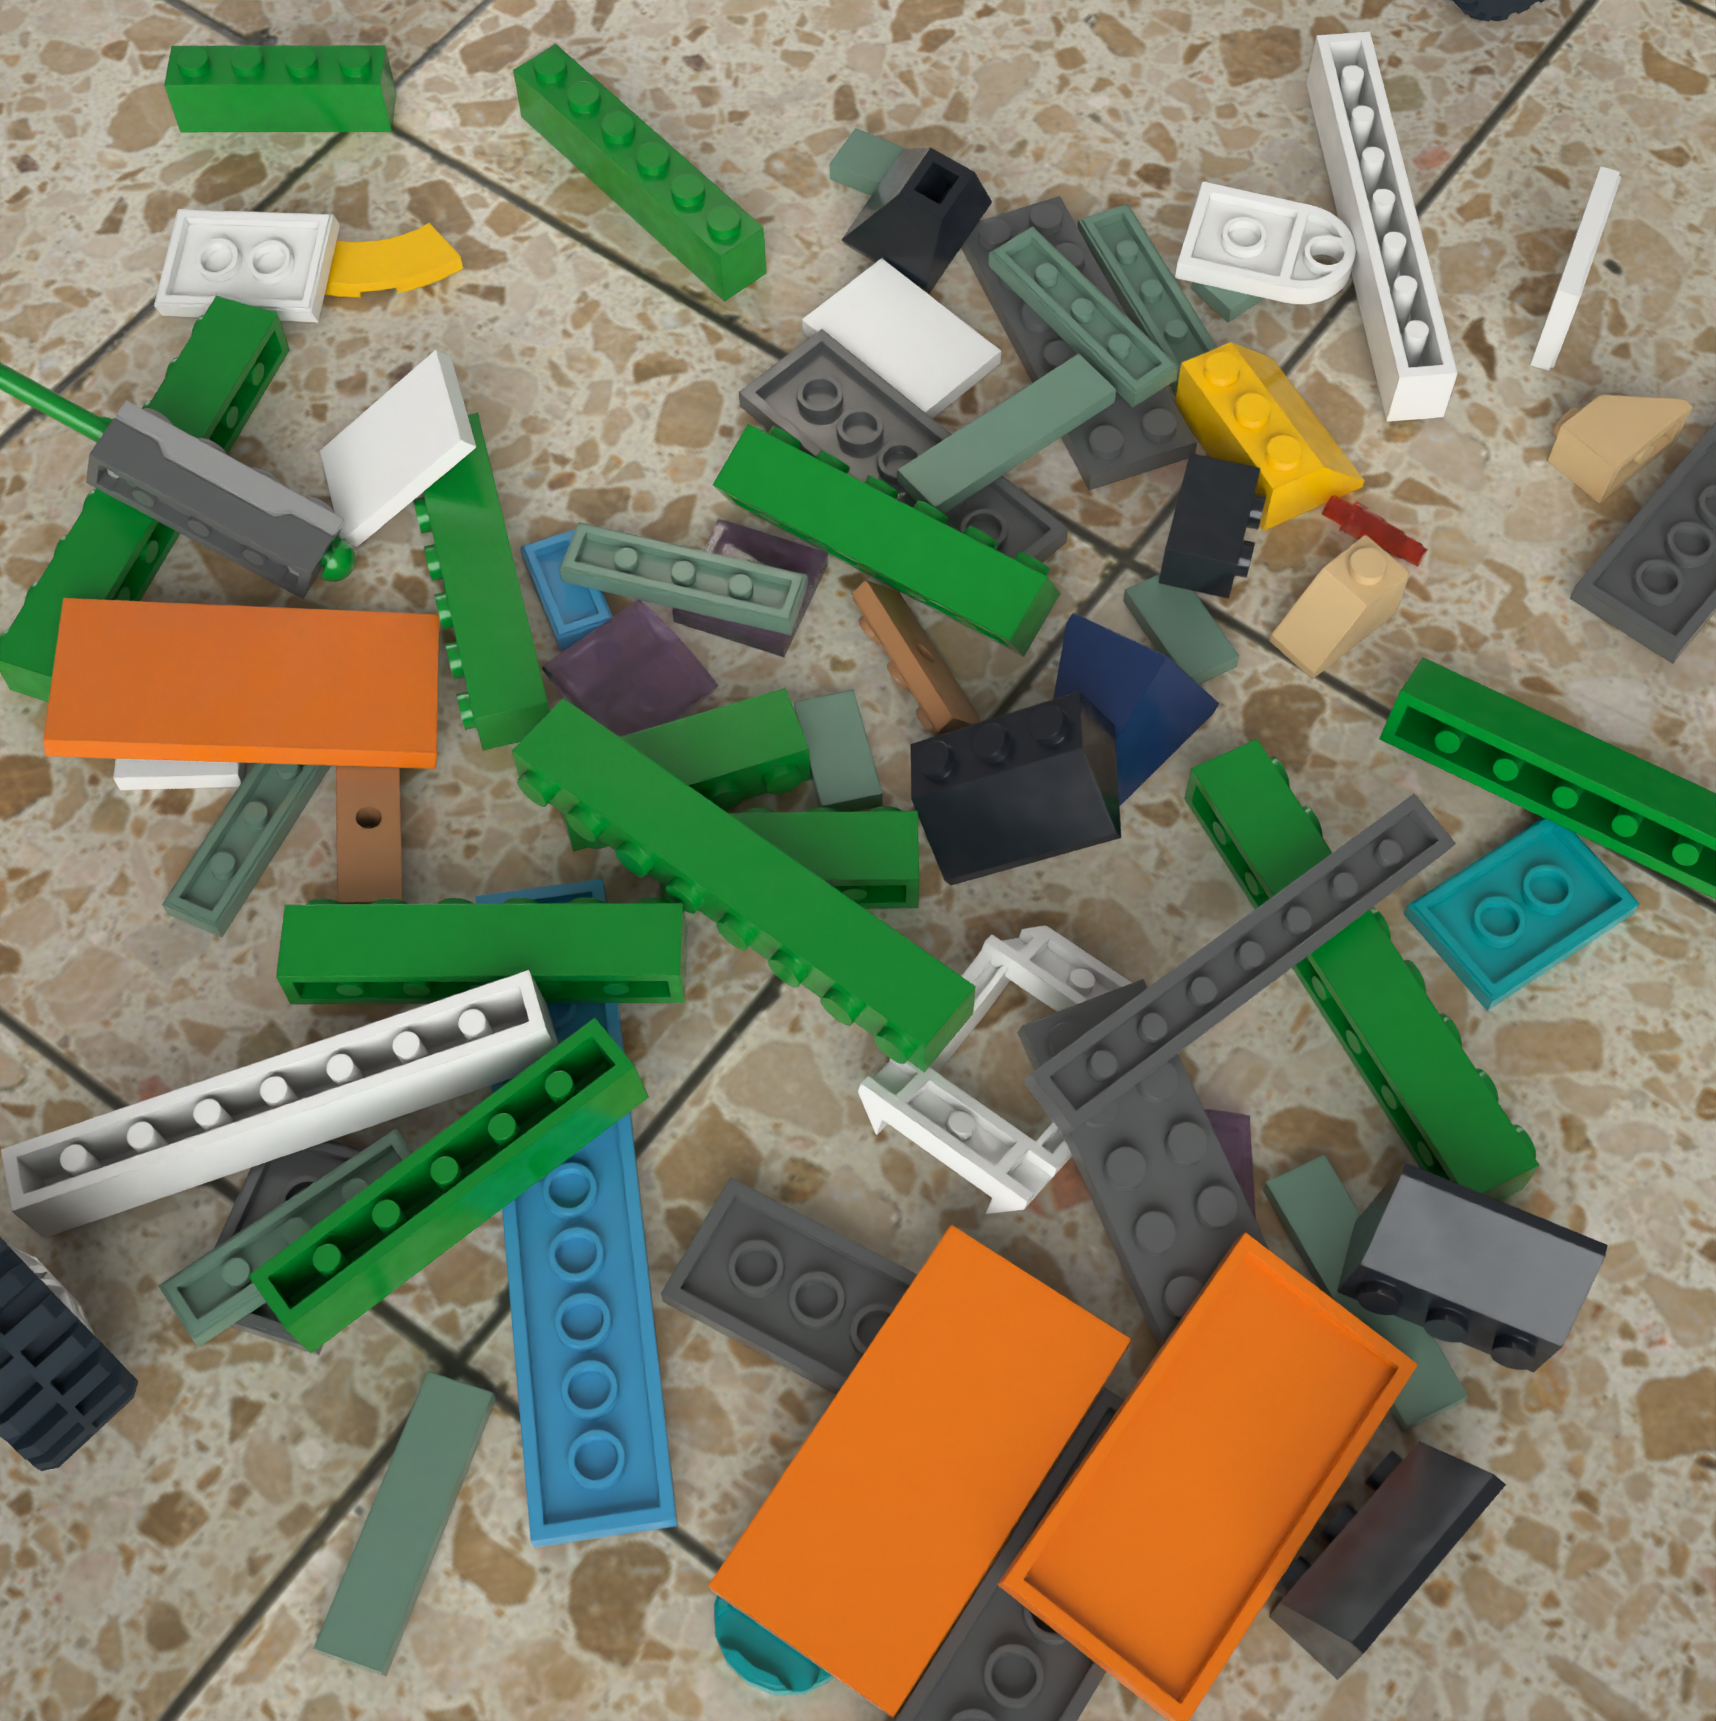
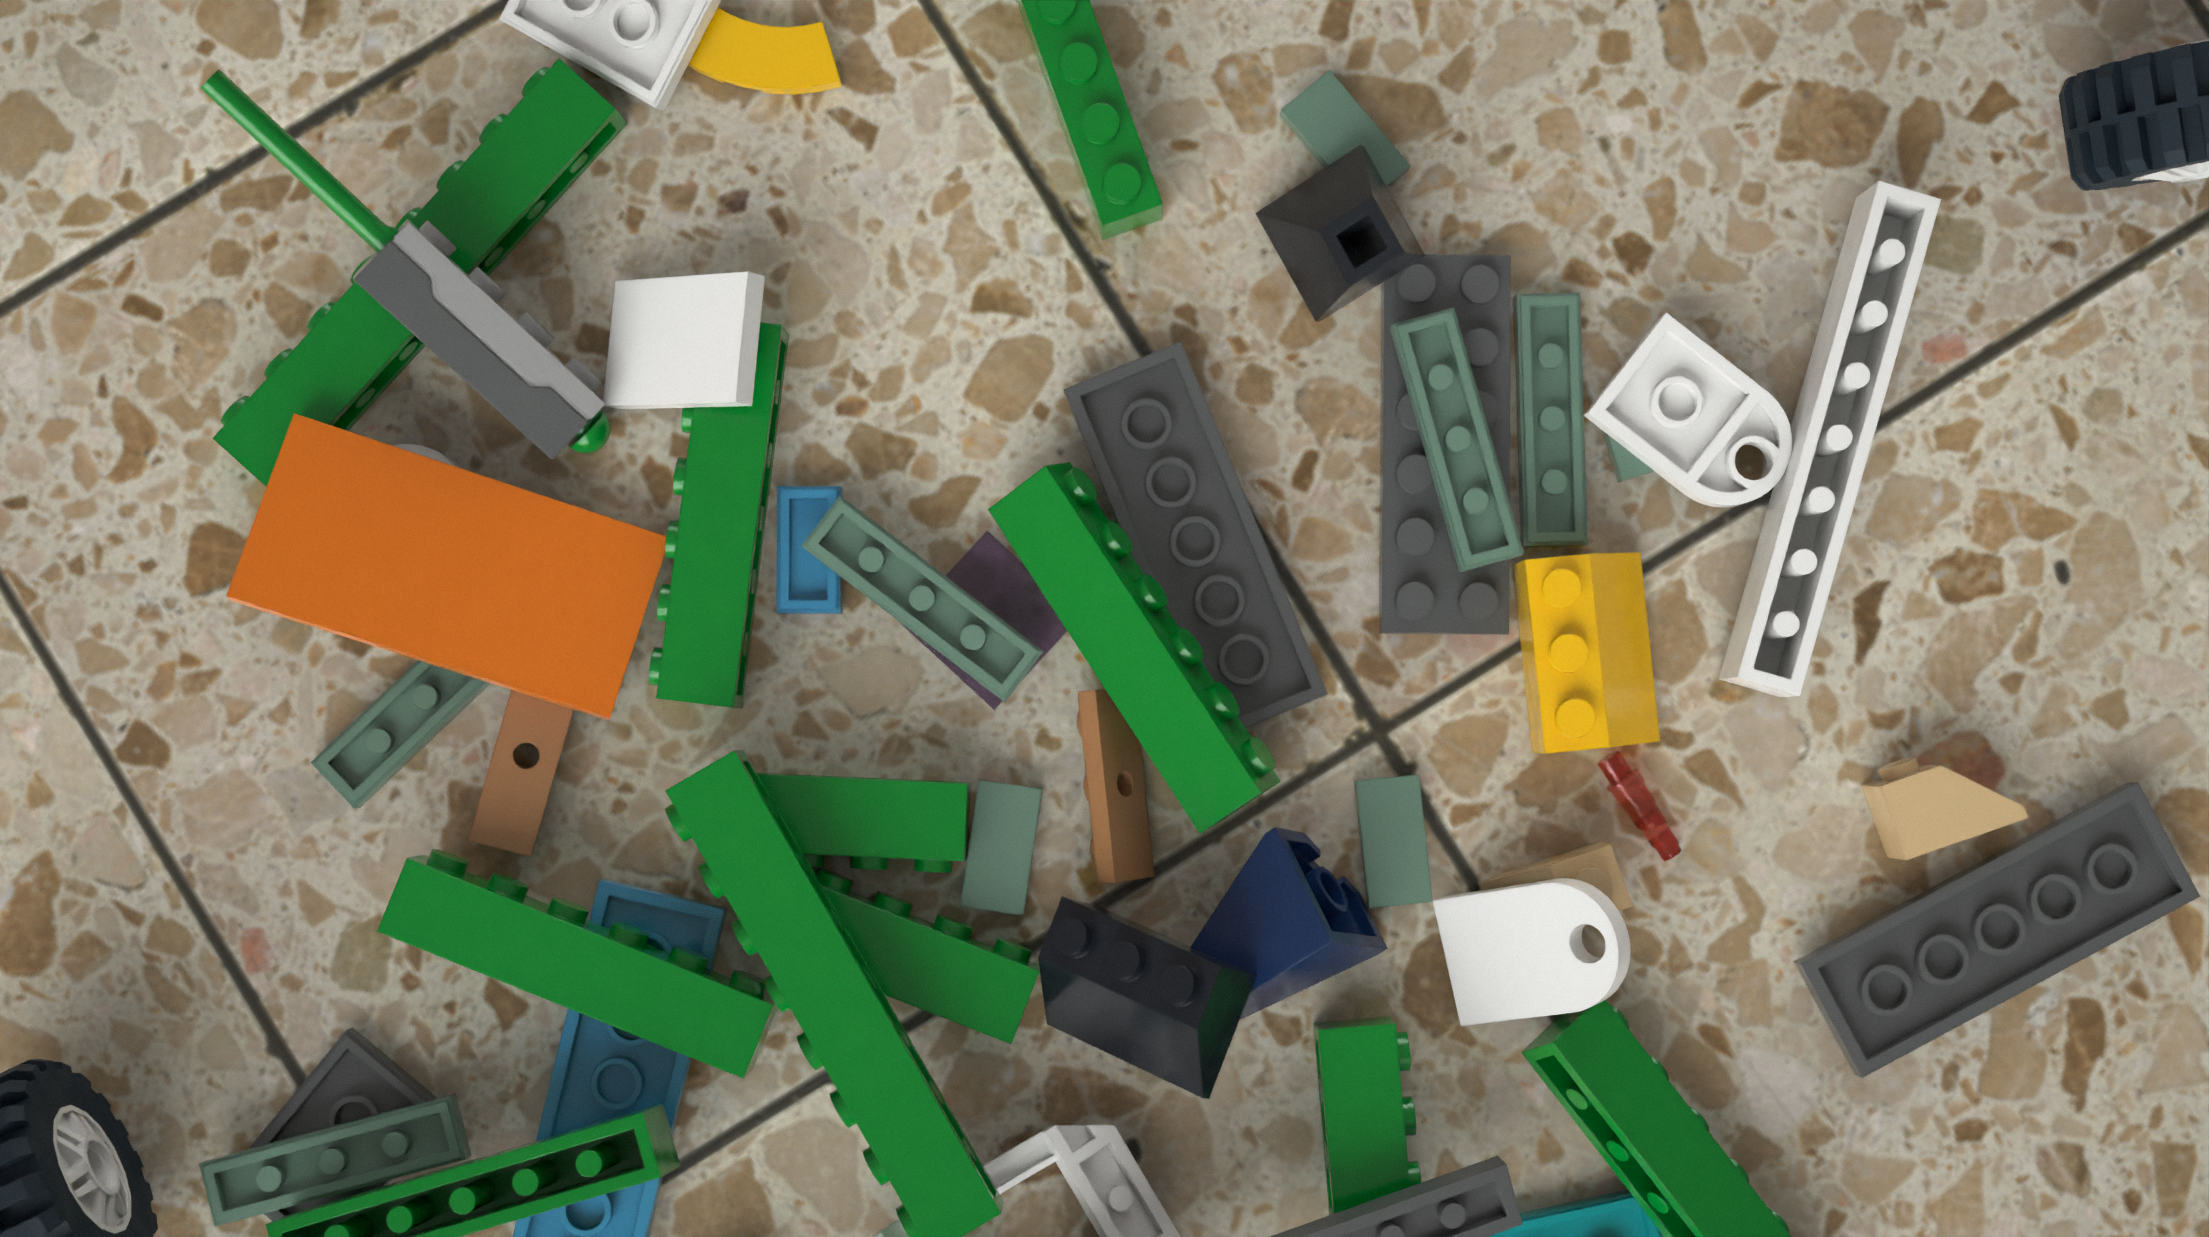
camera: 20 degrees right, 25 degrees up
(278, 1106) = (353, 1048): white brick -> none
(631, 673) = (831, 686): clear purple slope -> none
(905, 337) = (1263, 375): white tile -> none
(1007, 435) = (1312, 564): sand green tile -> none
(1210, 525) = (1471, 754): black hinge -> none
(1339, 644) = (1523, 951): none -> white tile
(1576, 269) = (2003, 597): white tile -> none

